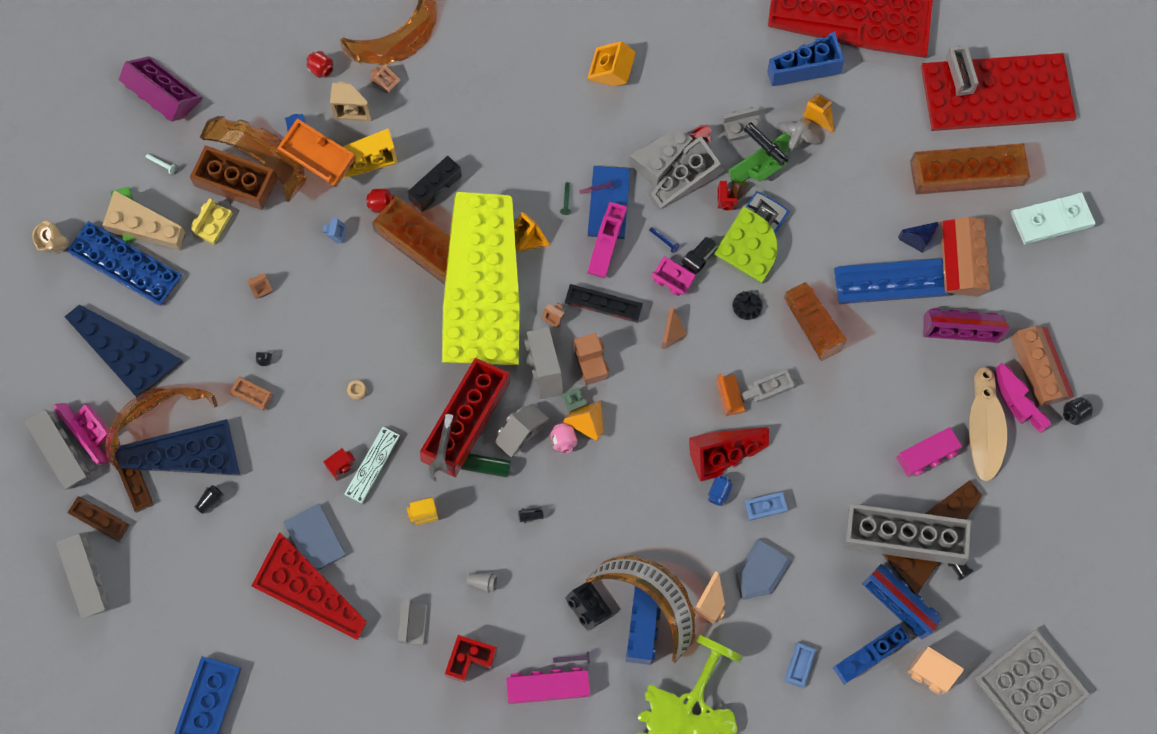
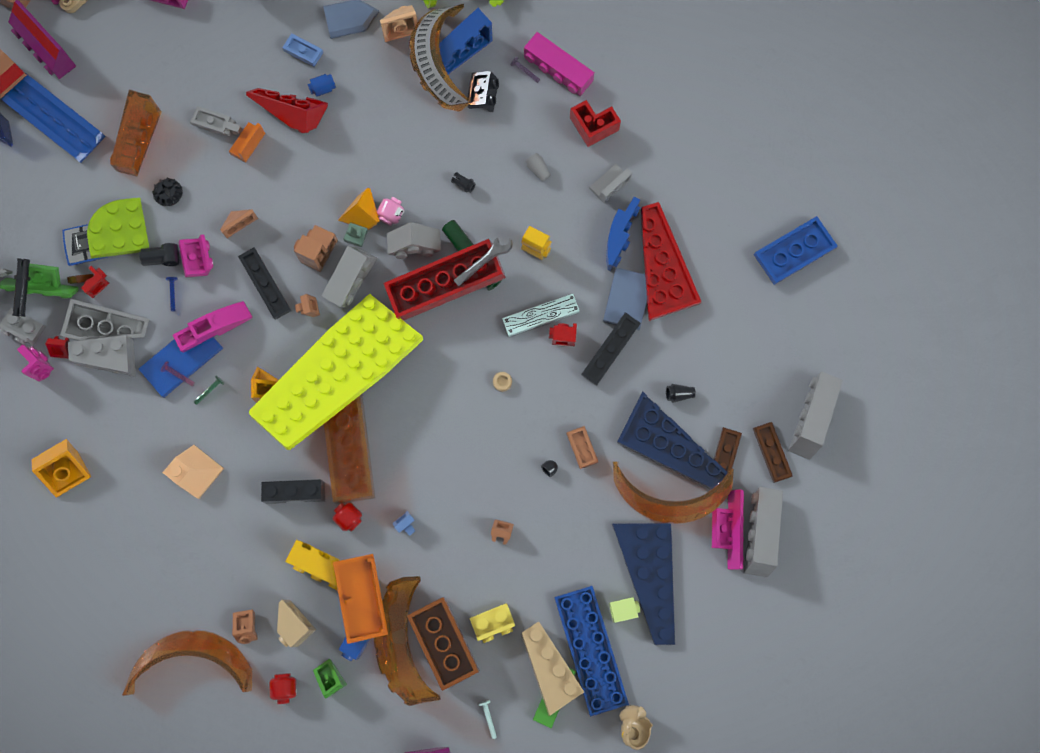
camera: 135 degrees left, 5 degrees up
(121, 307) = (624, 609): none -> yellowish green brick
(292, 484) = (610, 349): none -> black plate
(293, 95) = (329, 678): none -> bright green slope
(364, 578) = (618, 233): none -> blue slope
(519, 139) = (193, 471): none -> light nougat slope
(701, 109) = (38, 366): none -> dark pink bracket

